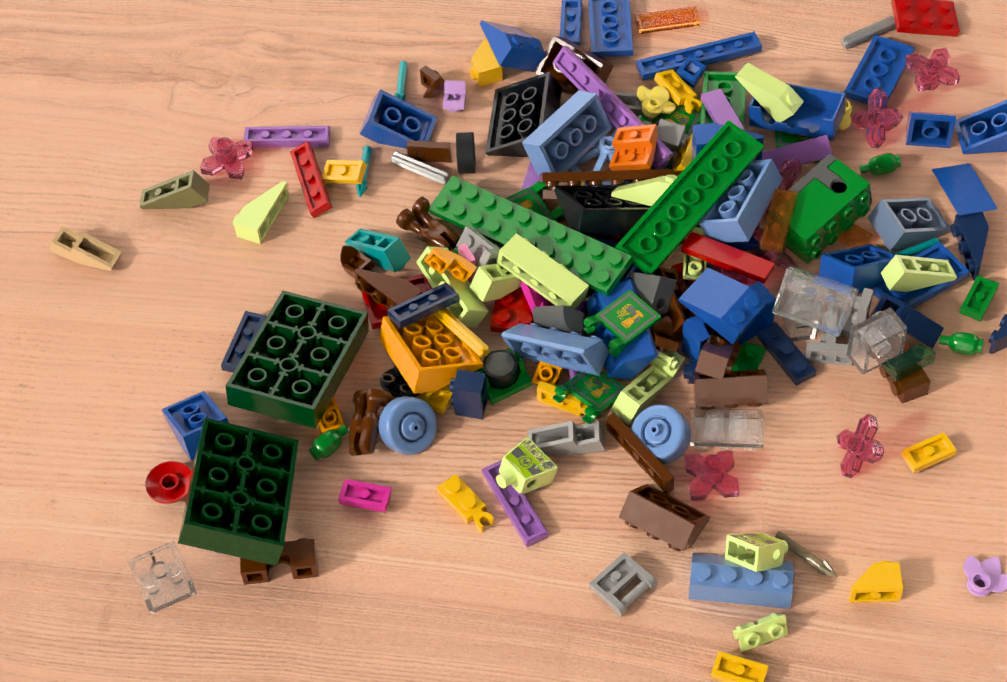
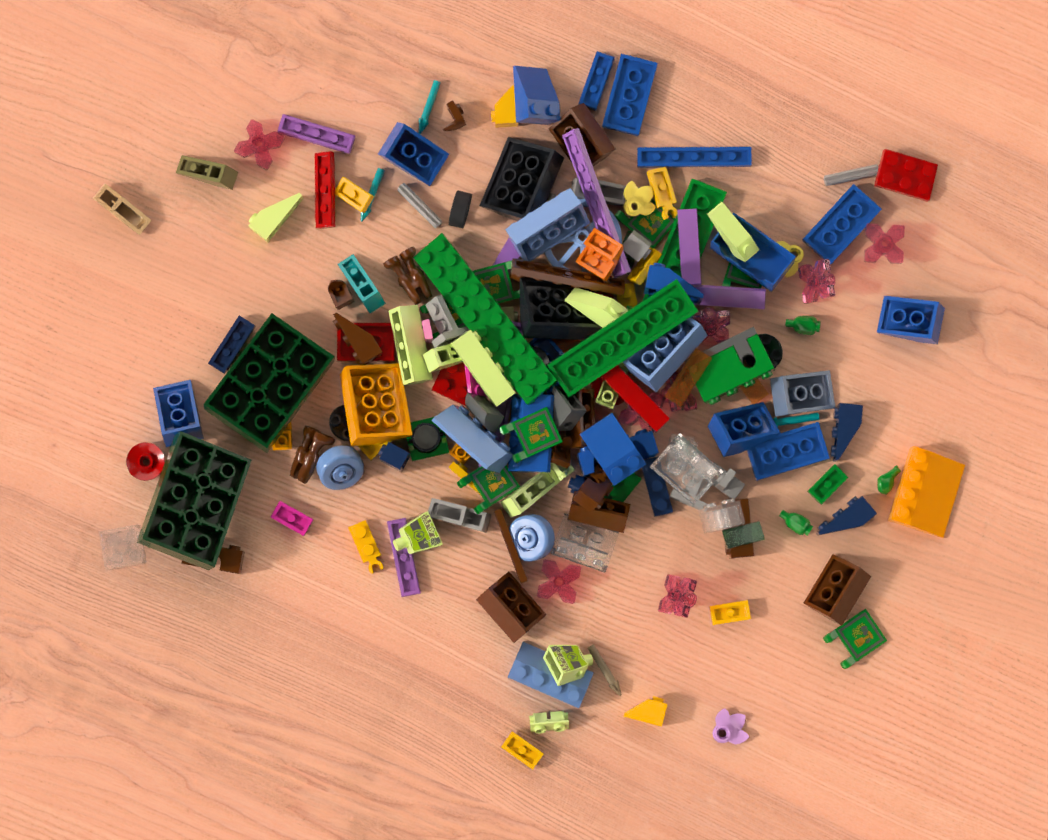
camera: 10 degrees right, 30 degrees up
(327, 442) = (275, 462): green plant -> none
(423, 305) = (379, 367): dark blue plate -> none
(429, 151) = (431, 192): reddish brown tile -> none
(442, 259) = (408, 334): light orange slope -> none
(454, 96) = (469, 138): lavender bracket -> none
(462, 332) = (402, 392): yellow axle -> none
(616, 578) = (457, 648): light grey plate -> none
(667, 20) = (682, 103): clear orange tile -> none
(691, 71) = (681, 175): blue slope -> none
(914, 273) = (785, 453): yellowish green slope -> none
(918, 325) = (757, 492): dark blue slope -> none
(930, 129) = (858, 302): blue slope -> none
(964, 189) = (860, 374): blue sticker -> none

